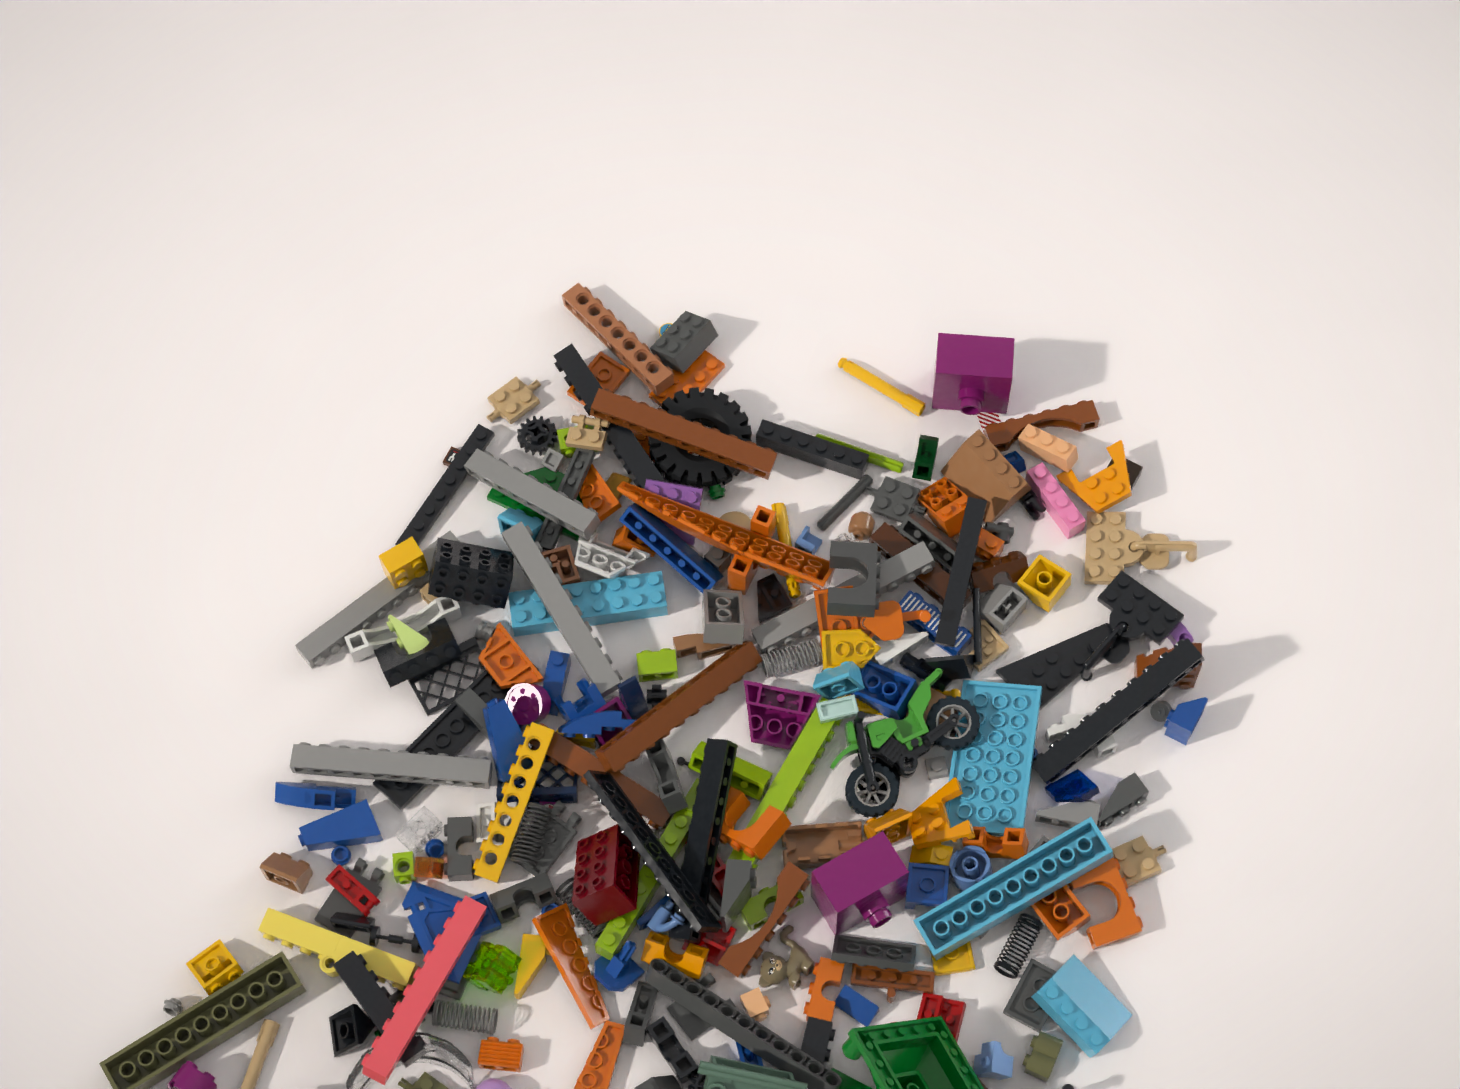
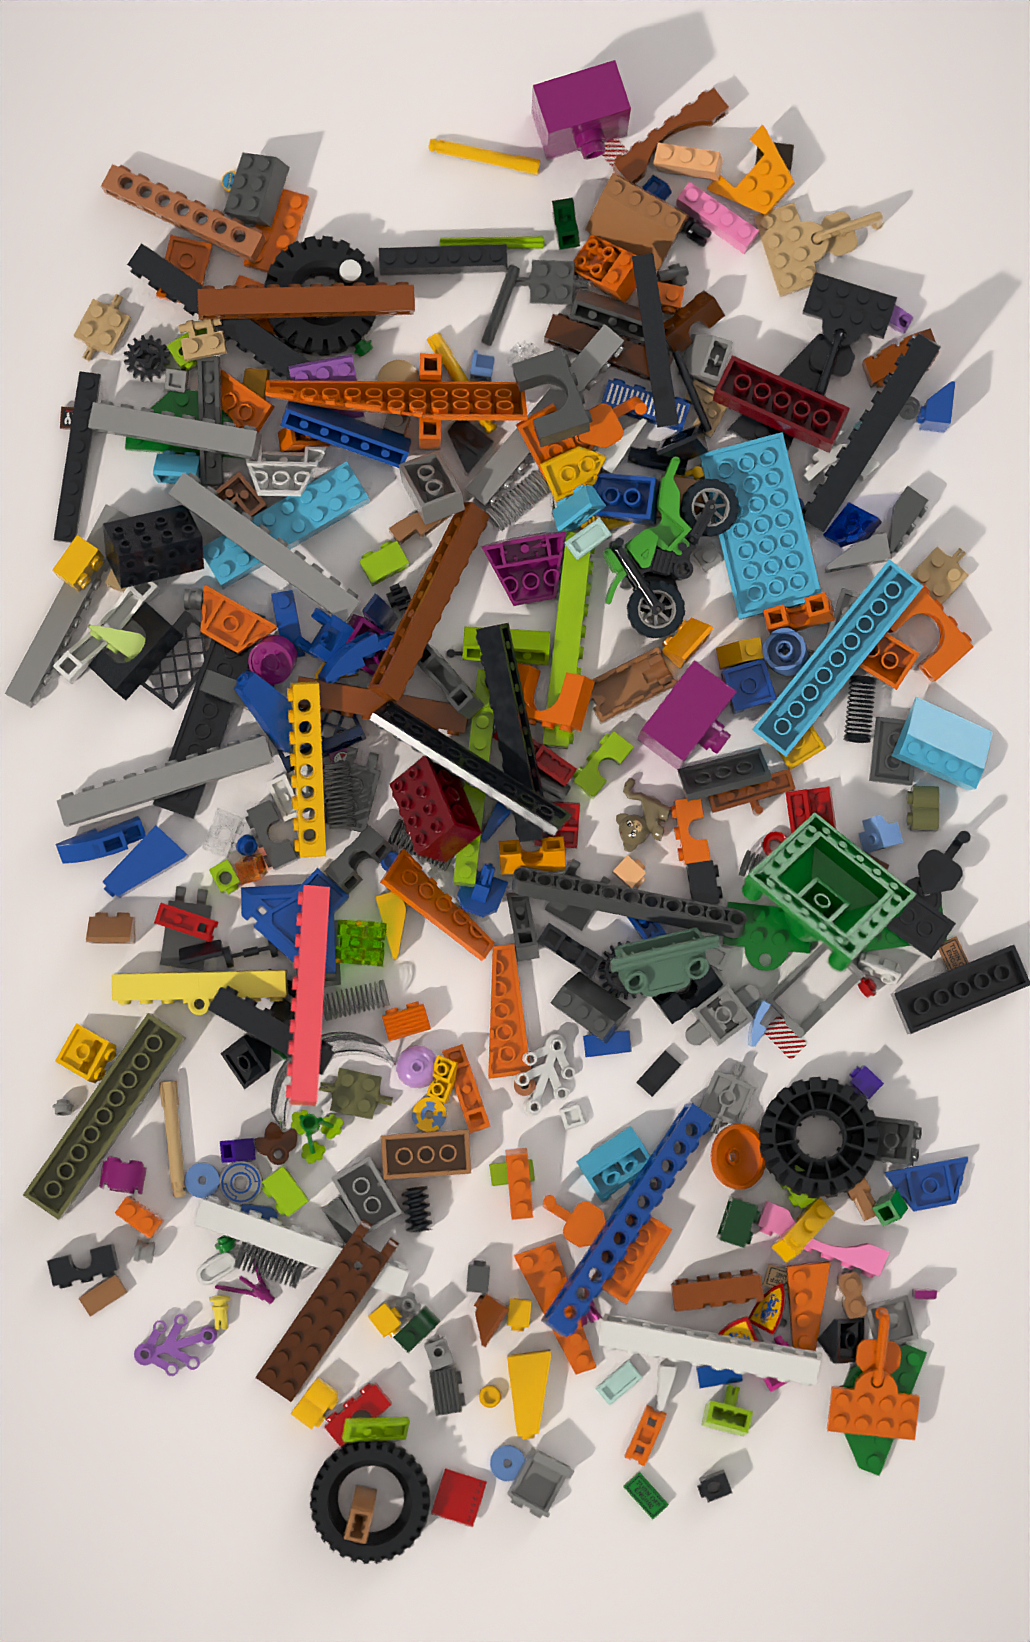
camera: 30 degrees left, 20 degrees up
(341, 855) = (155, 889): blue plate -> none
(659, 919) = (504, 824): medium blue plant -> none
(730, 425) = (350, 271): none -> white tile
(737, 890) = (568, 765): dark grey slope -> none
(739, 956) = (595, 830): dark orange arch -> none
(856, 1006) = (726, 832): blue slope -> none
(861, 525) = (529, 326): medium nougat head -> none
(931, 821) = (729, 619): light orange wing -> none
(1044, 582) = (741, 315): yellow slope -> none
(1049, 662) = (780, 404): none -> dark red brick

